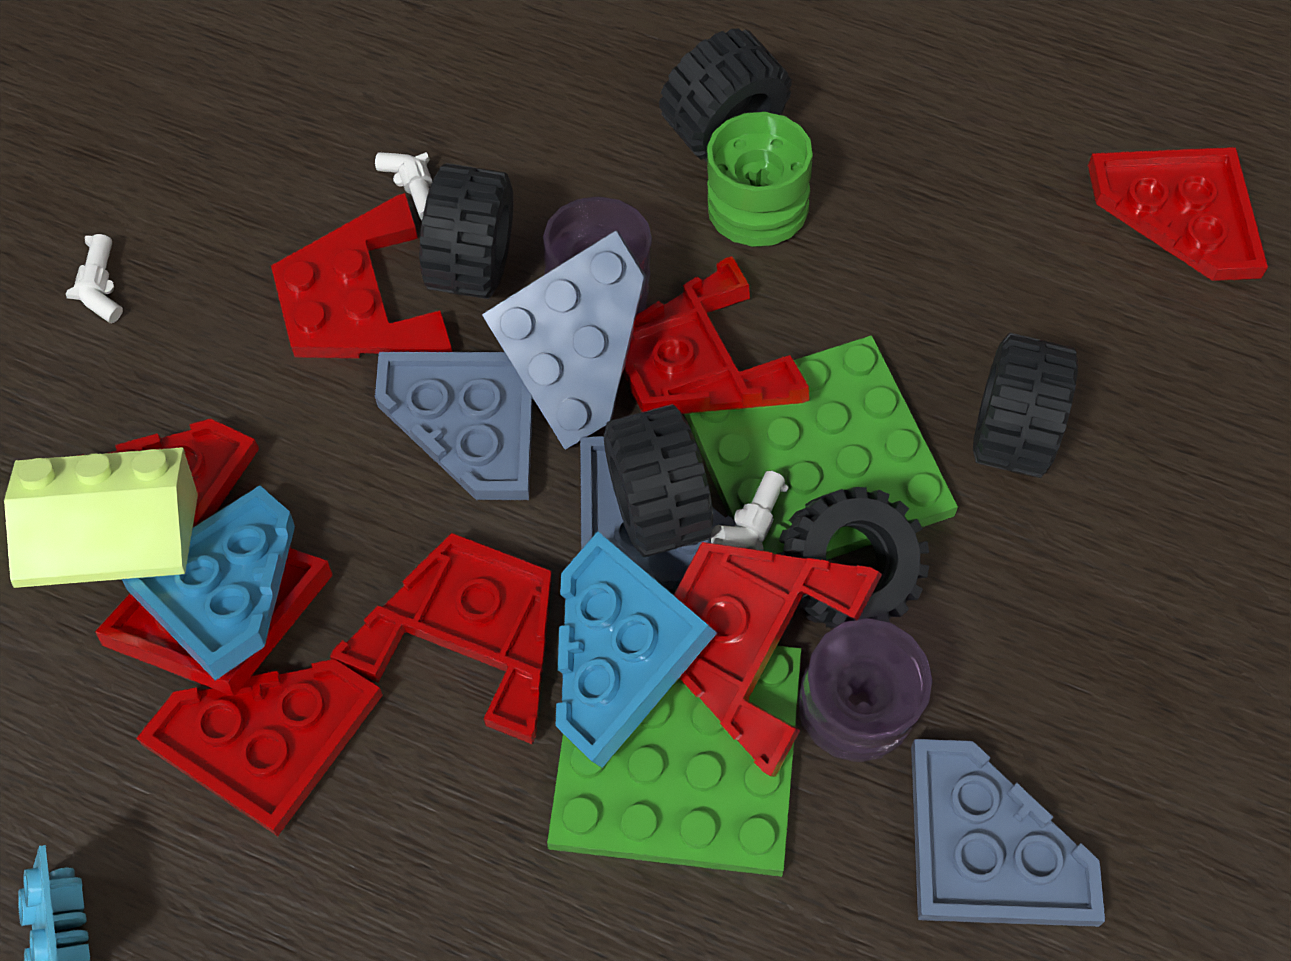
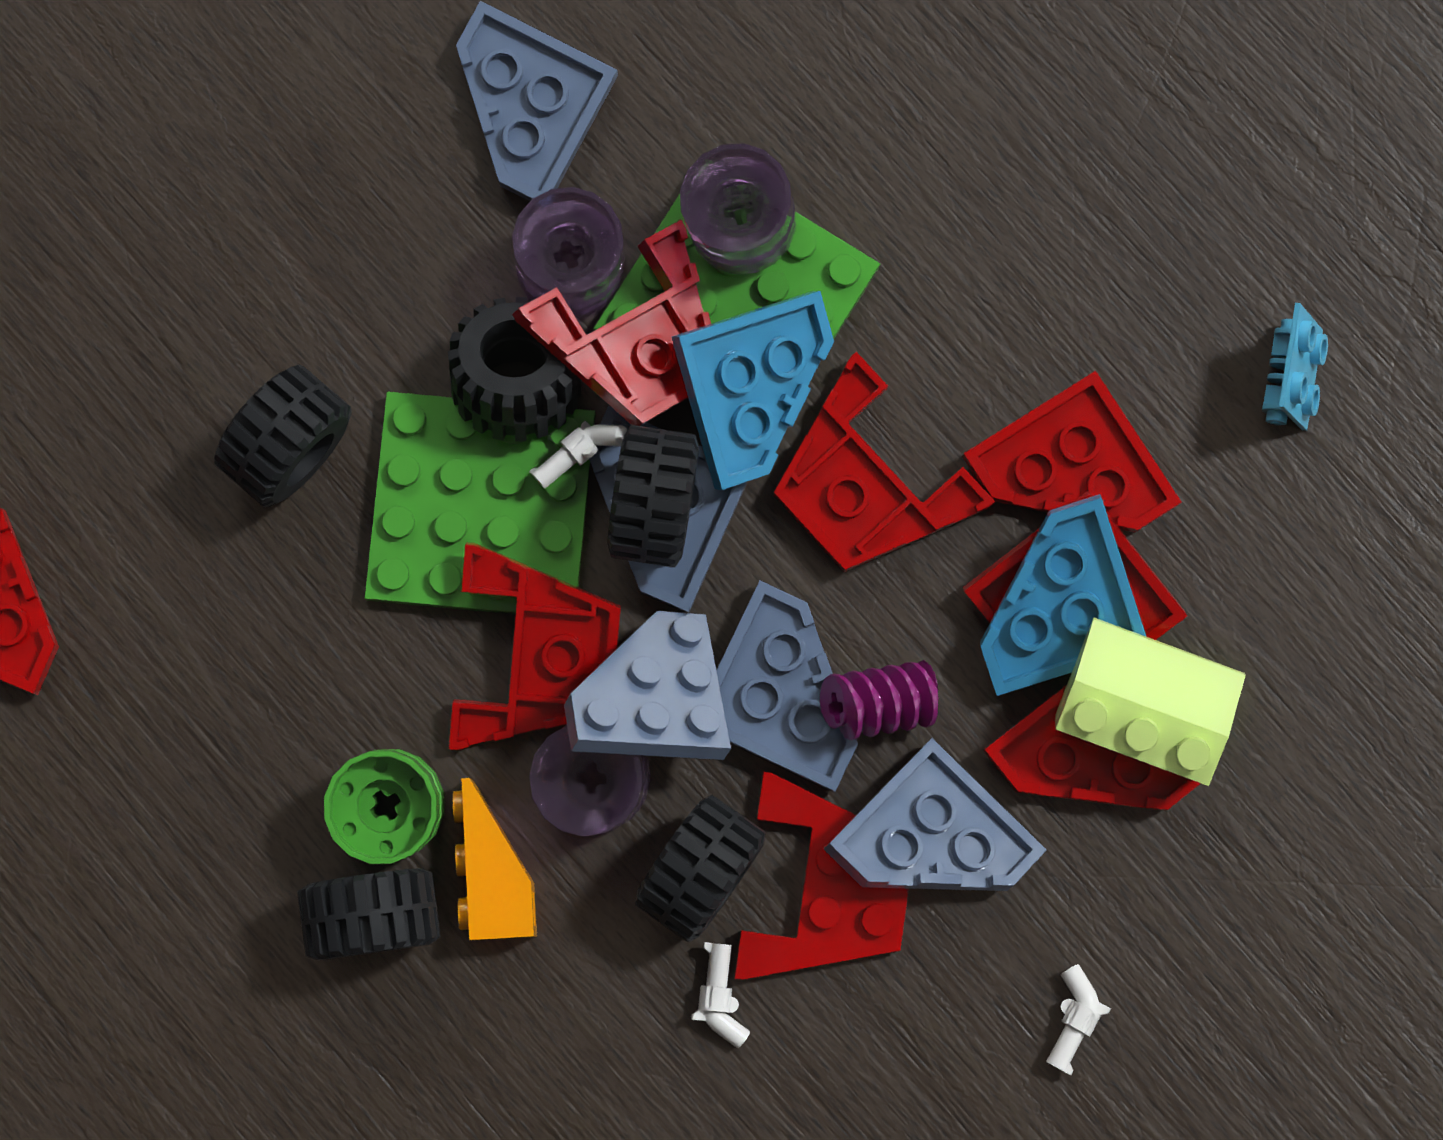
camera: 155 degrees left, 20 degrees up
(275, 352) = (935, 832): none -> sand blue plate
(365, 430) = (880, 699): none -> magenta piece
(632, 169) = (498, 885): none -> light orange slope
(712, 763) = (732, 180): none -> clear purple wheel

